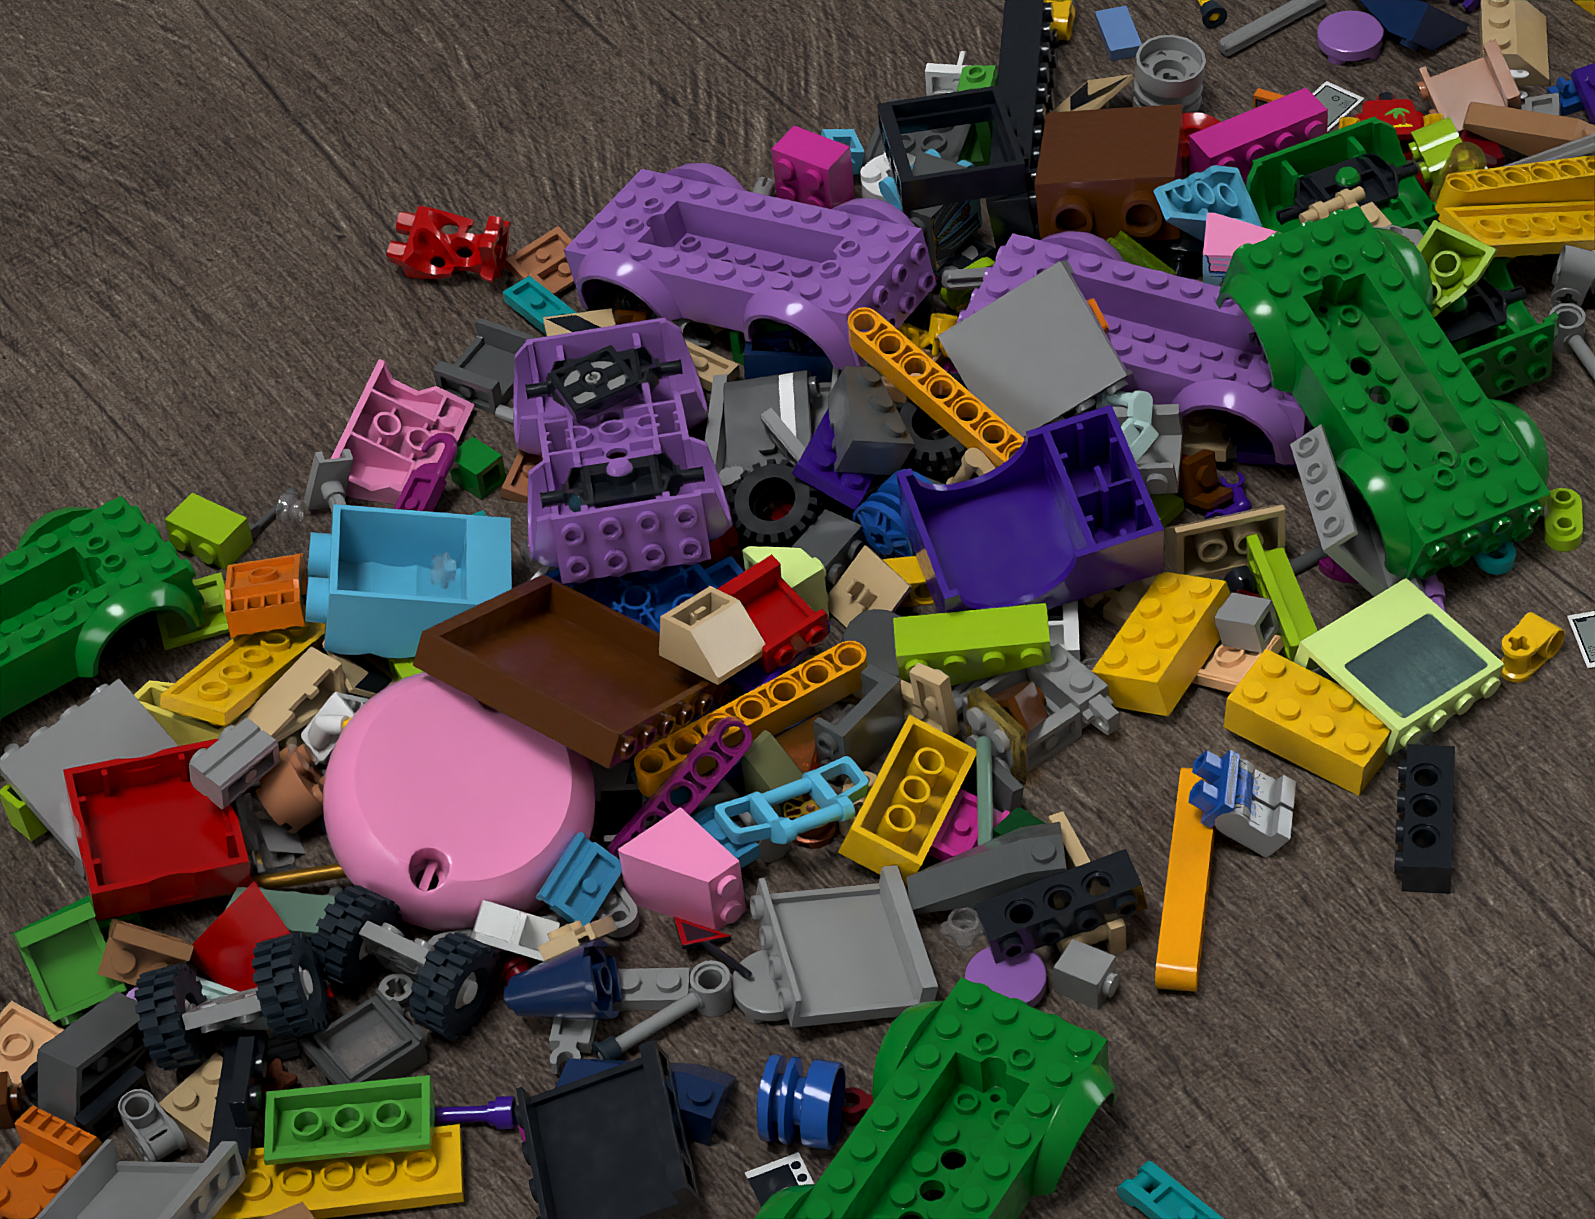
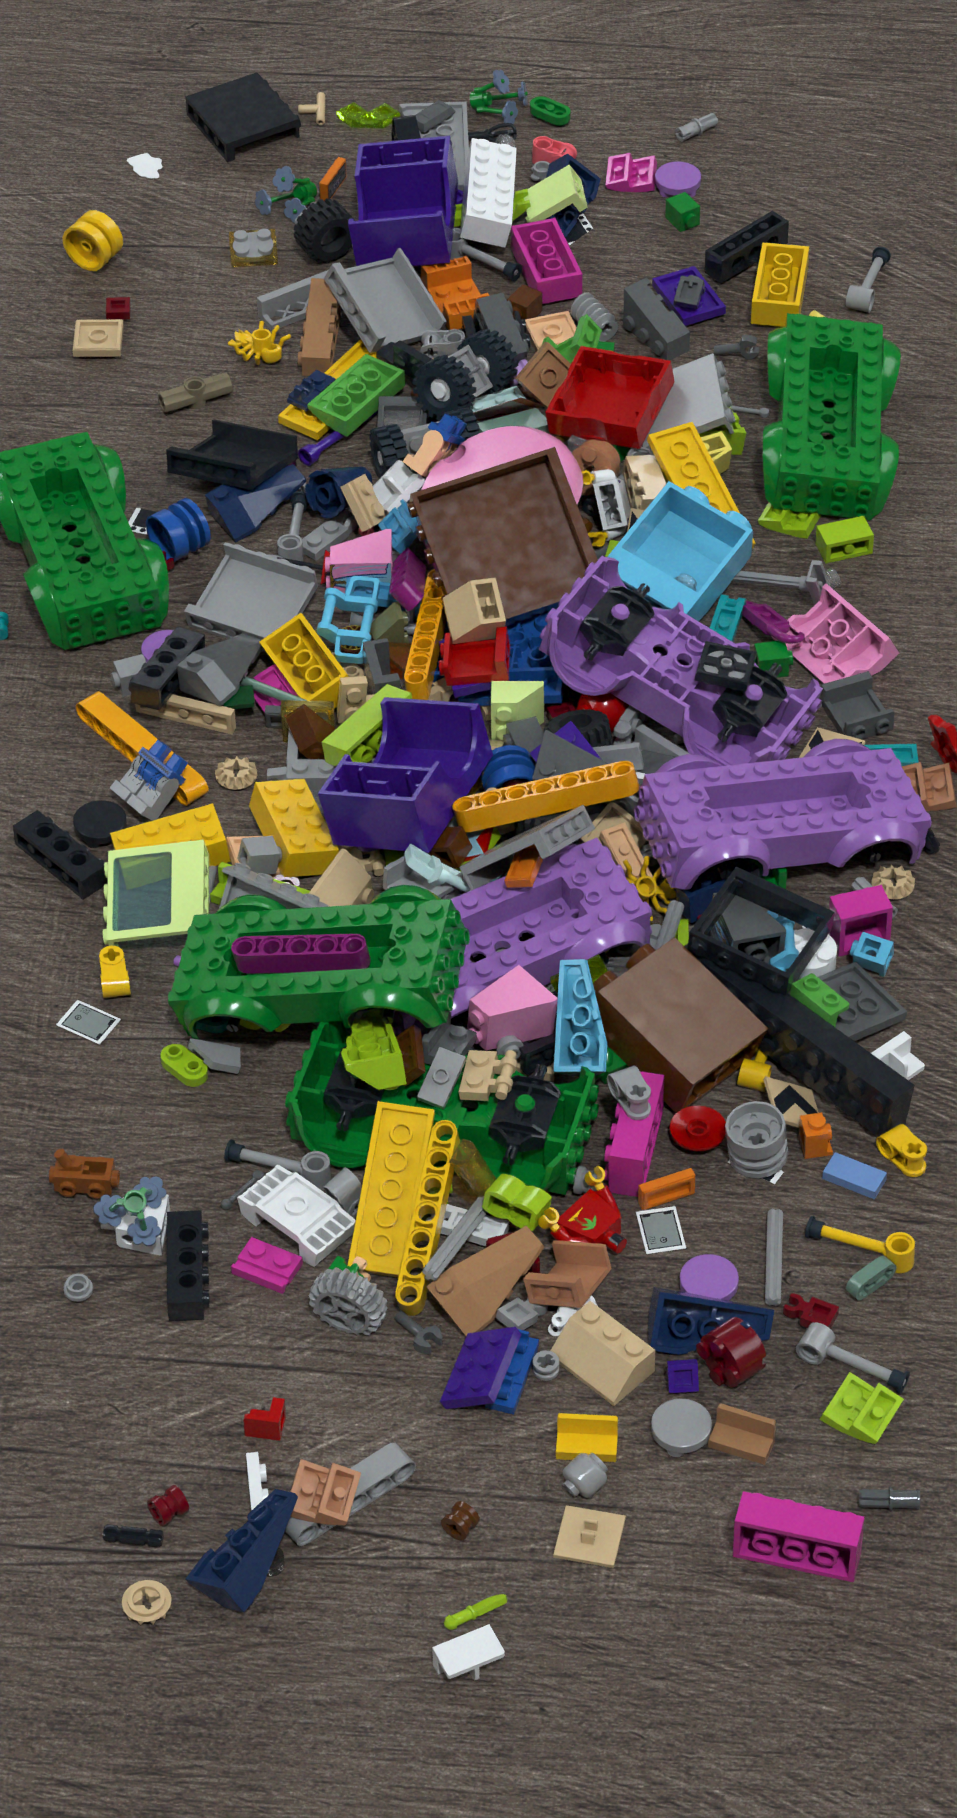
camera: 125 degrees right, 0 degrees up
(233, 762) = (604, 417): light grey brick -> none
(255, 528) = (845, 591): dark grey hinge -> none
(265, 594) = (770, 523): orange plate -> none
(382, 1183) = (309, 389): none -> dark blue plate
(429, 894) = (437, 444): none -> light nougat hips
(1111, 59) = (815, 1136): none -> orange brick
(1124, 788) = (245, 777): none -> tan gear
(1245, 121) = (630, 1092): none -> light grey piece
(1339, 827) = (97, 820): none -> black tile
(1398, 383) = (300, 953): none -> magenta beam
(1563, 67) = (550, 1371): none -> light grey bush

